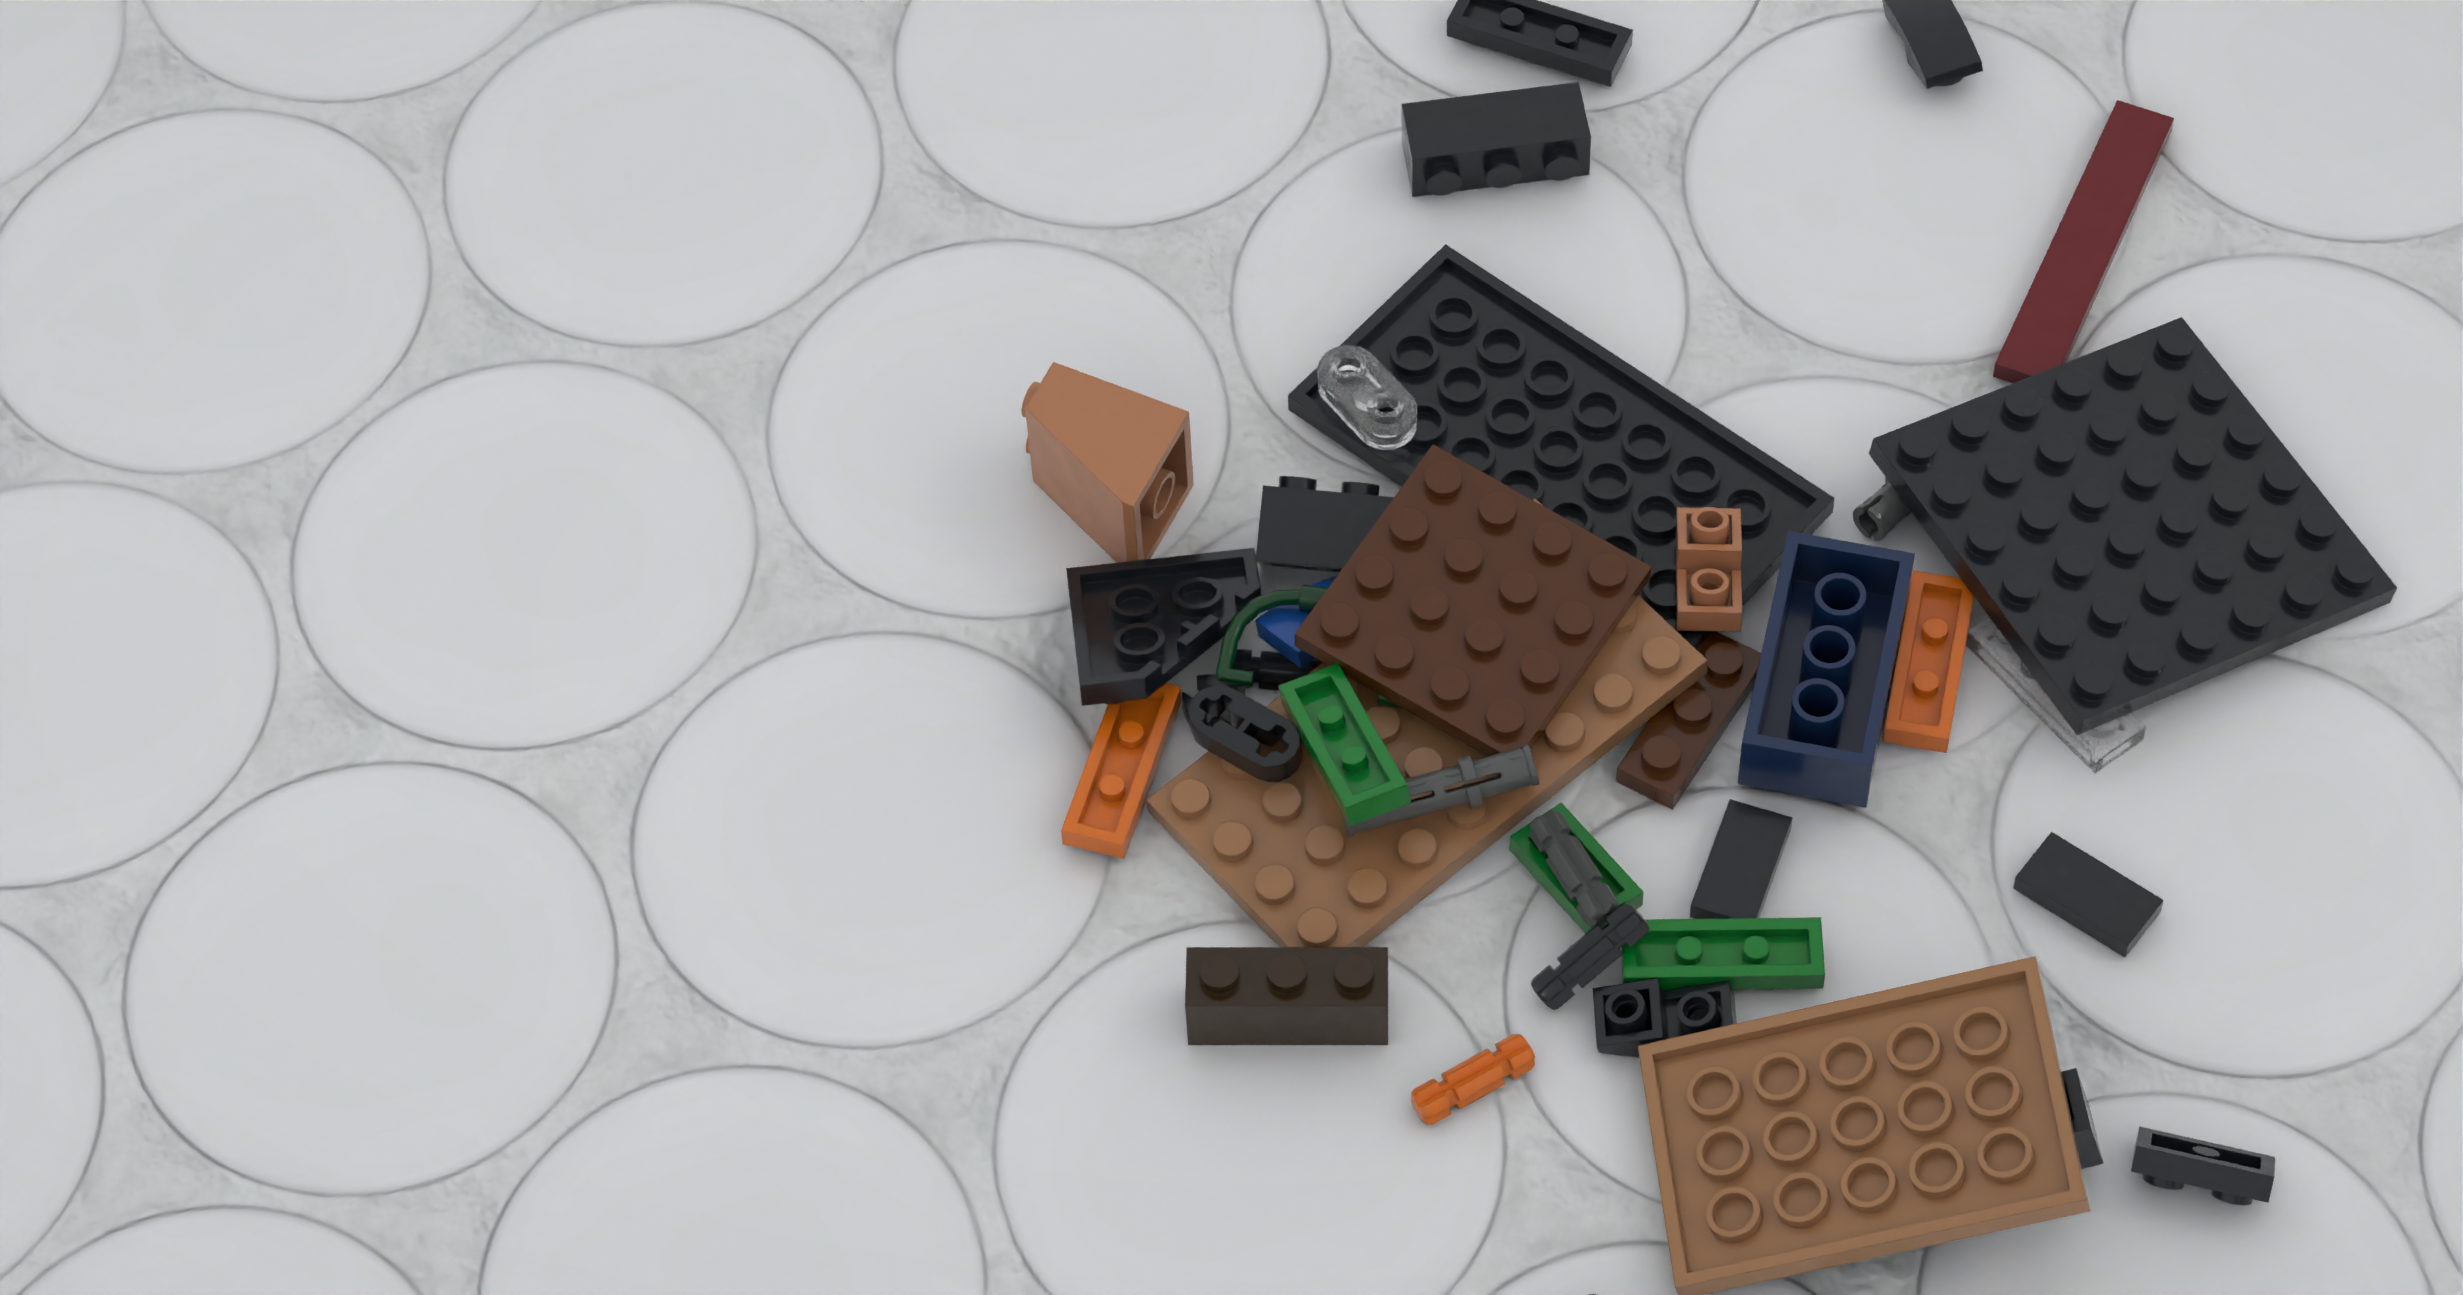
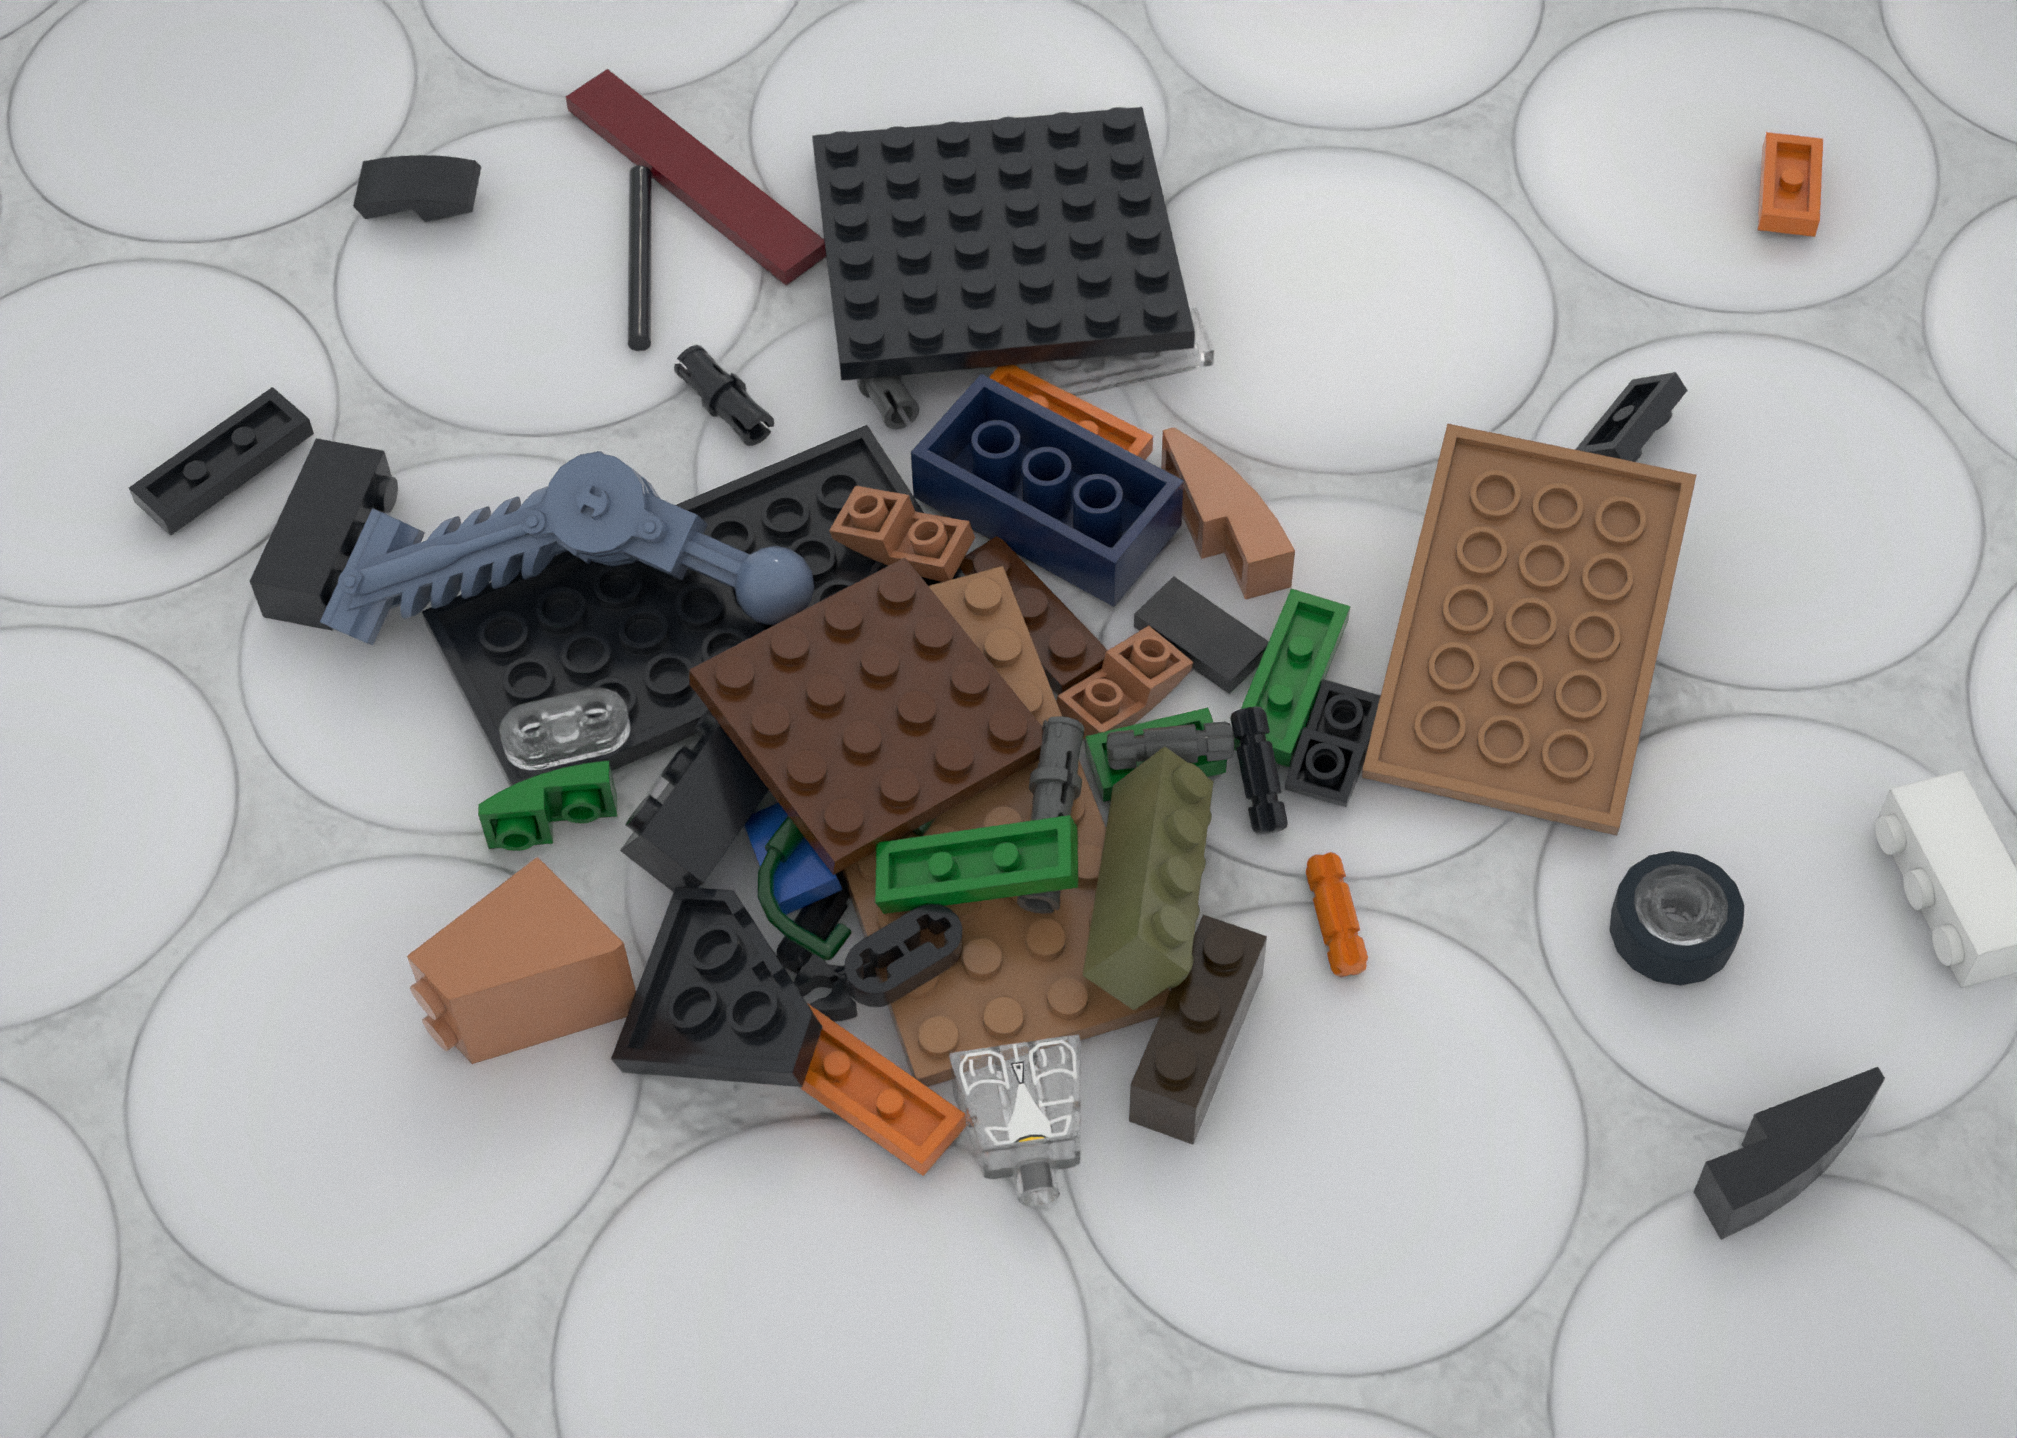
camera: 70 degrees left, 0 degrees up
(1148, 892) = (1022, 1111): none -> clear torso
(1291, 418) = (526, 810): none -> green slope
(1408, 891) = (1149, 880): none -> olive brick
(1565, 299) = (590, 509): none -> sand blue piece
(1650, 827) = (1128, 685): none -> nougat slope
(1819, 375) = (724, 395): none -> black pin
(1881, 837) = (1229, 517): none -> nougat slope
(1955, 244) = (639, 258): none -> black bar
(2088, 894) = (1335, 407): black tile -> none

